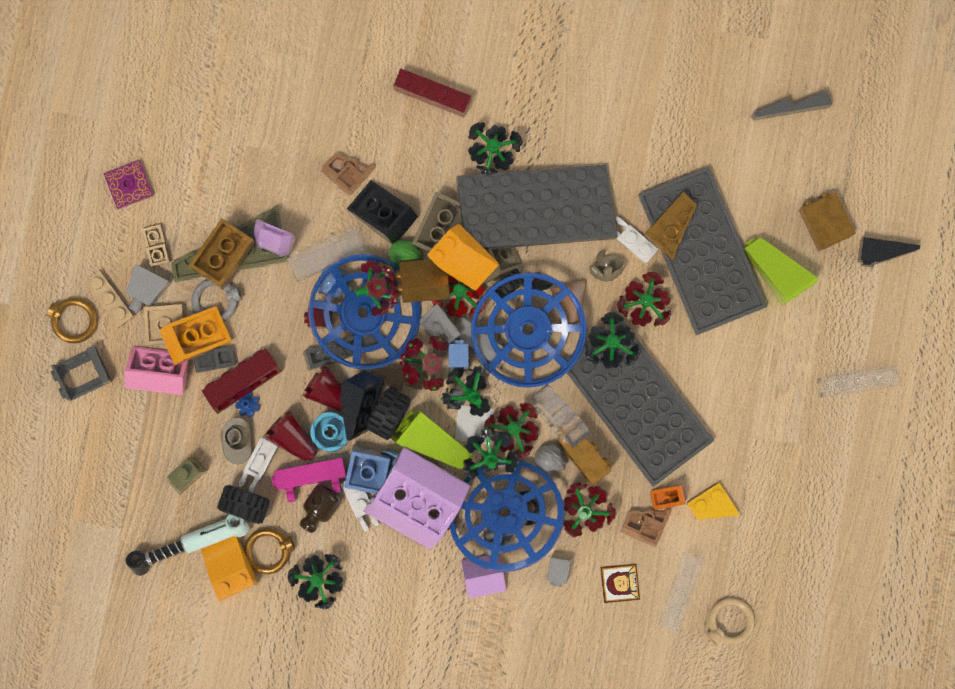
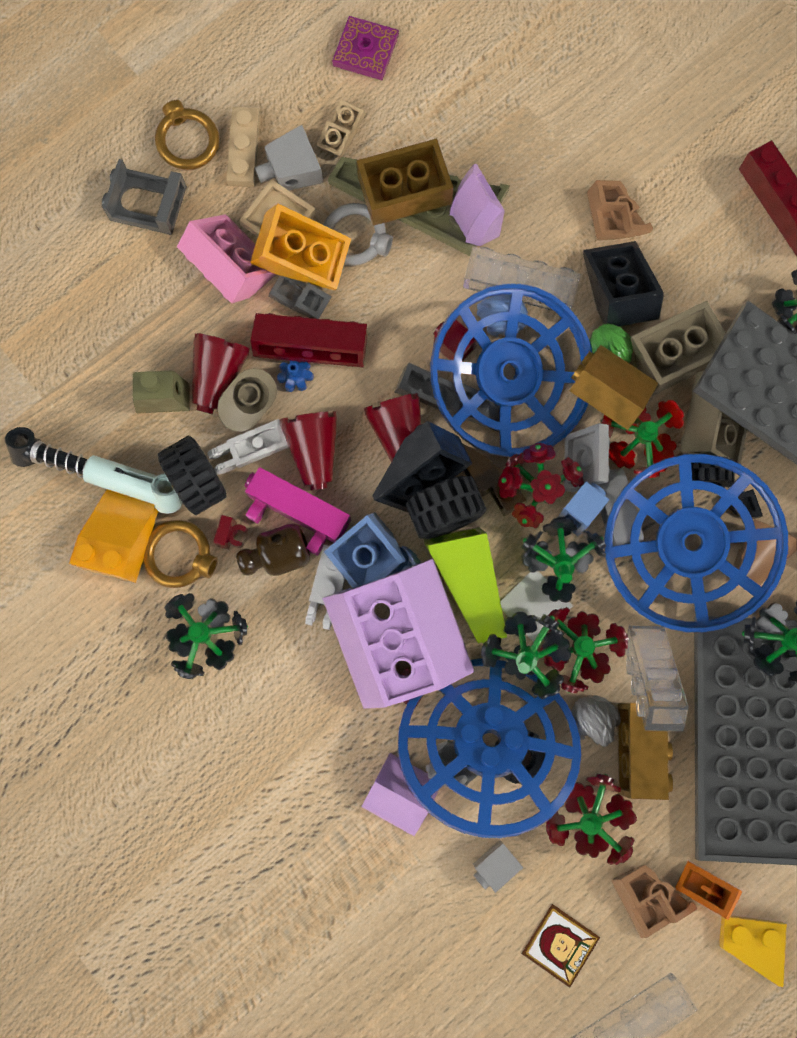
camera: 45 degrees right, 5 degrees down
(205, 439) = (214, 369): none -> dark red cone
(285, 519) = (226, 531): none -> dark red tile
(322, 425) = (357, 461): medium azure brick -> none
(378, 286) = (554, 342): dark red plant -> none
(463, 257) = (685, 393): light orange slope -> none

